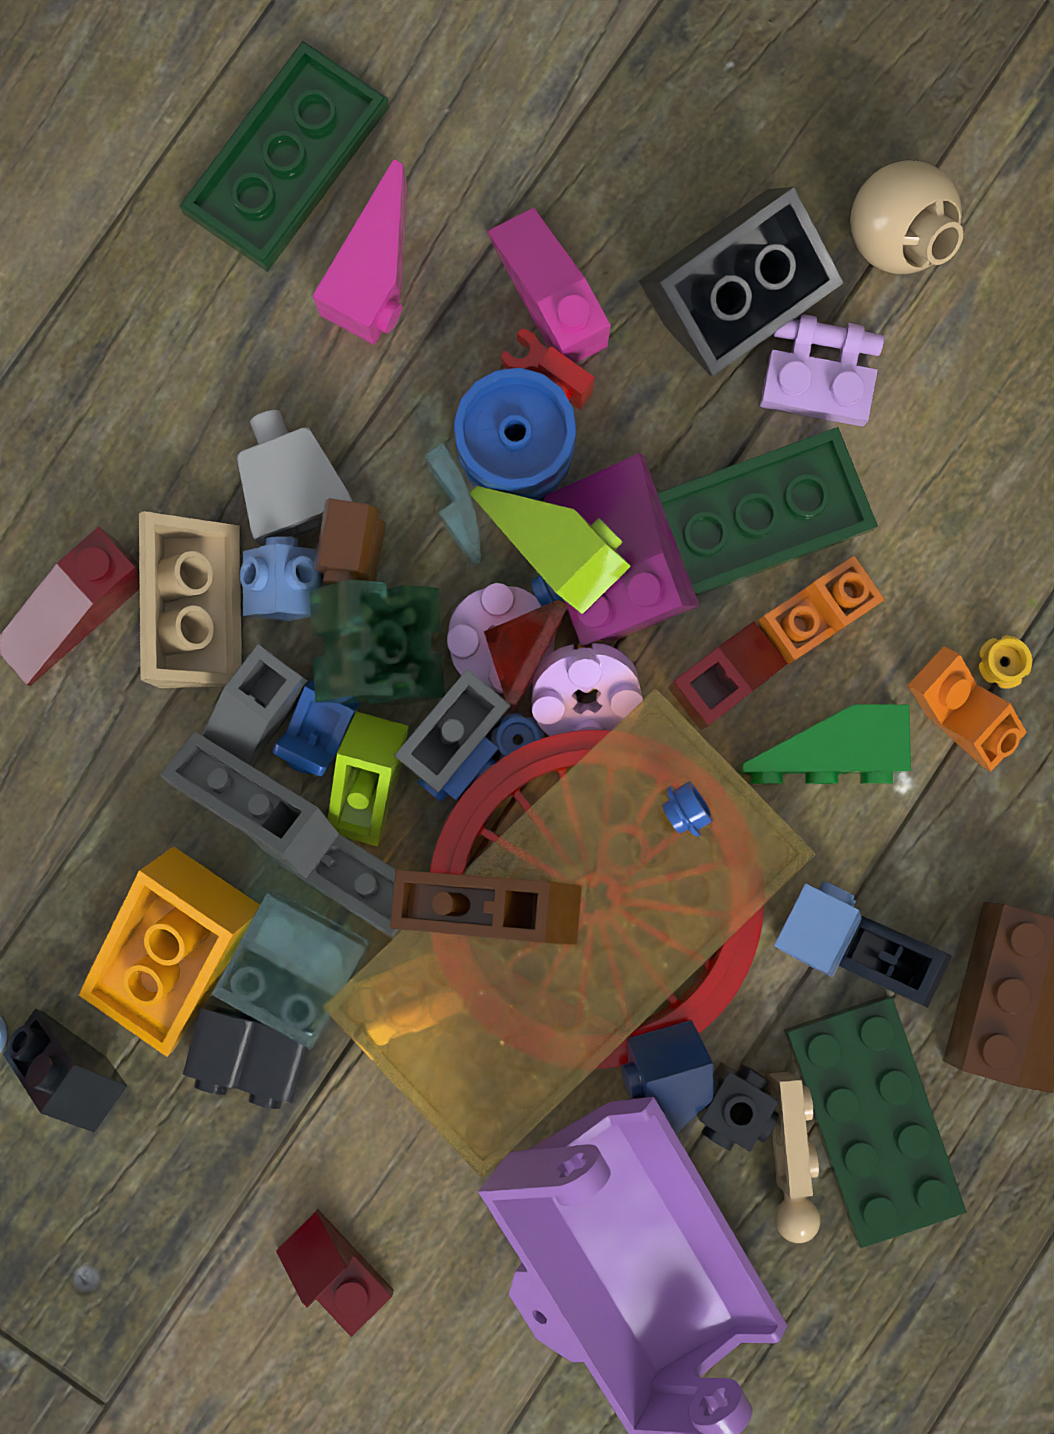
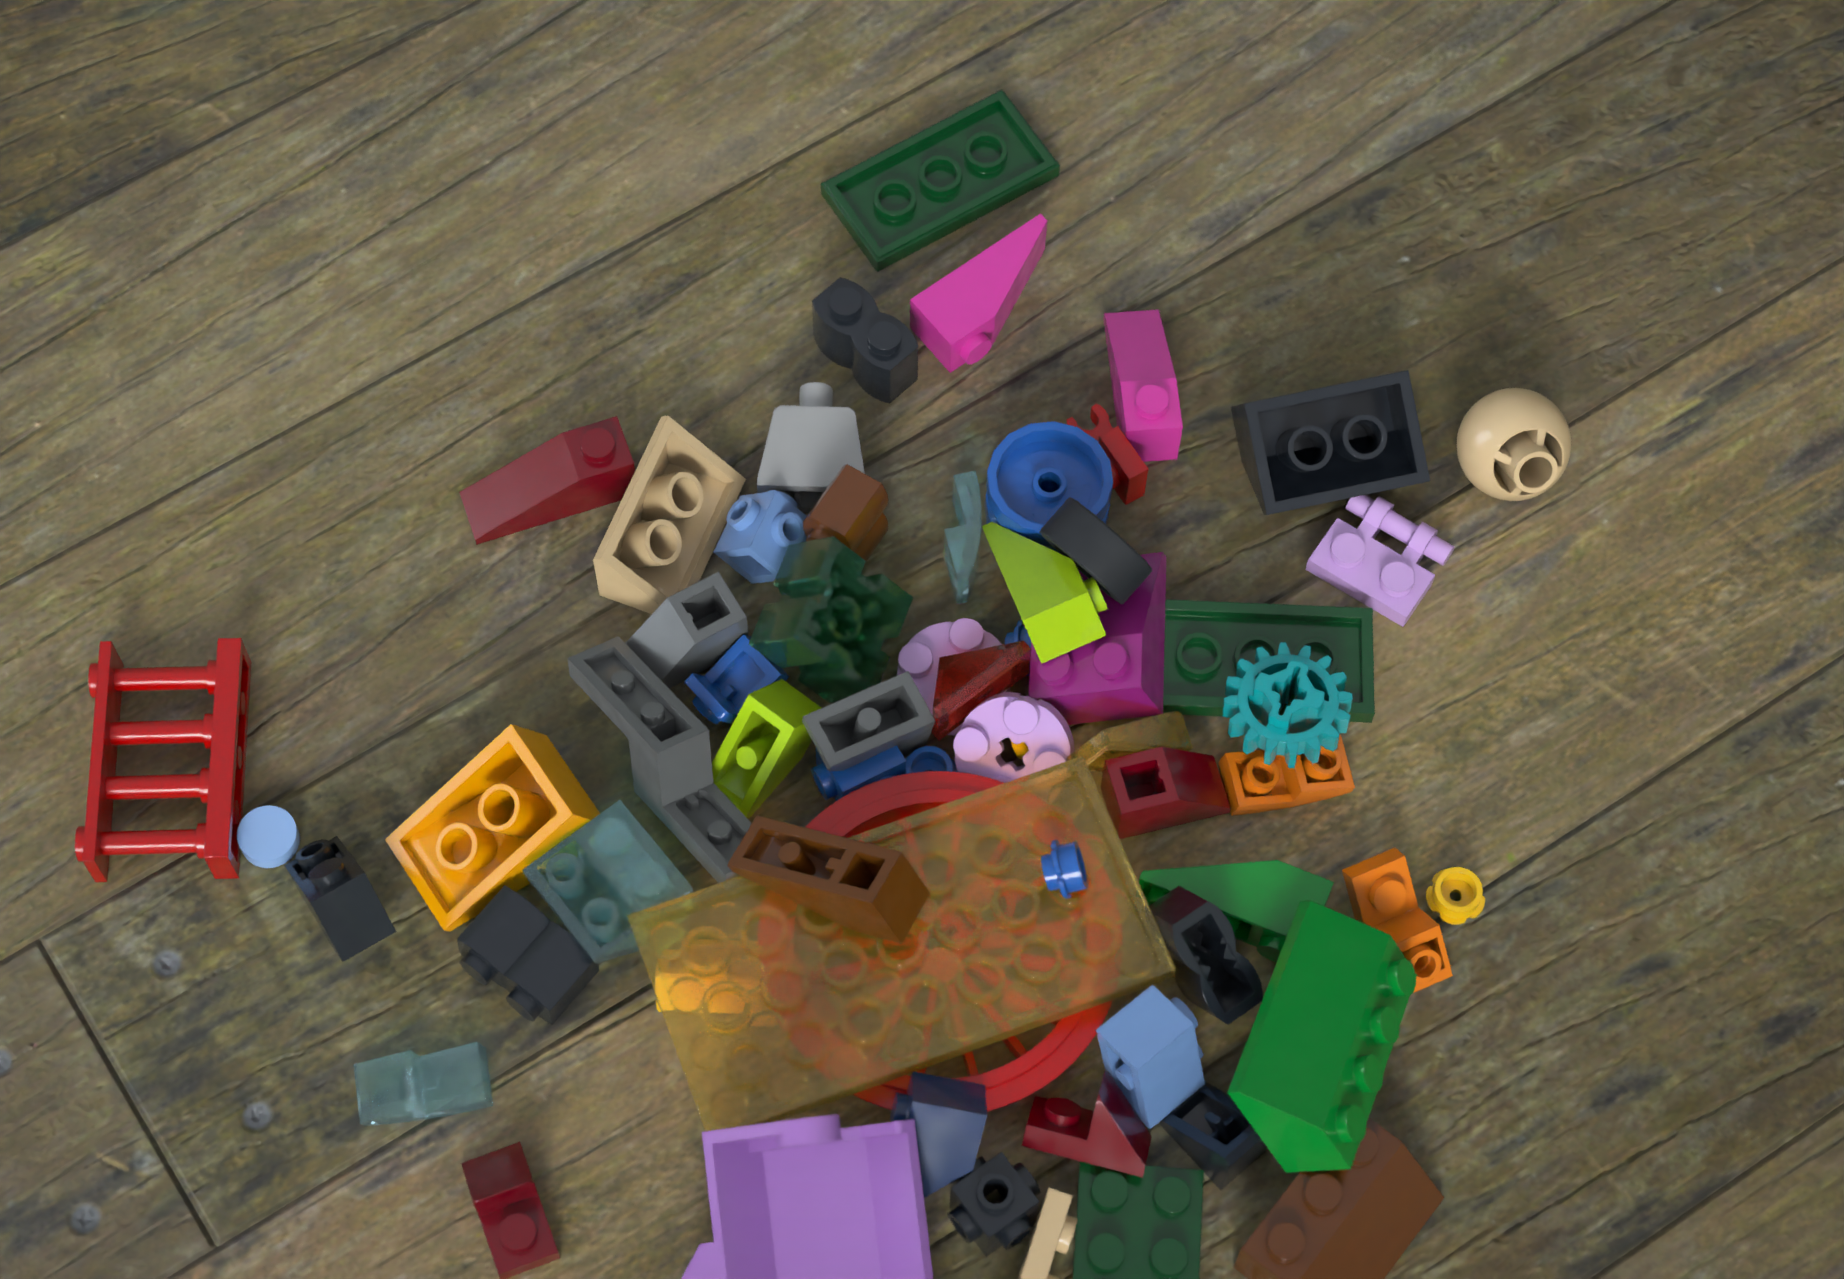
camera: 20 degrees right, 20 degrees down
(212, 1199) = (424, 1086): none -> clear light blue slope
(280, 349) = (865, 340): none -> black brick
(590, 491) = (1096, 550): none -> black tyre
(692, 641) = (1137, 736): none -> clear yellow slope
(792, 1009) = (1103, 1137): none -> dark red slope
(828, 820) = (1206, 955): none -> black brick
(830, 557) = (1309, 721): none -> teal gear
(965, 862) = (1322, 1039): none -> green slope

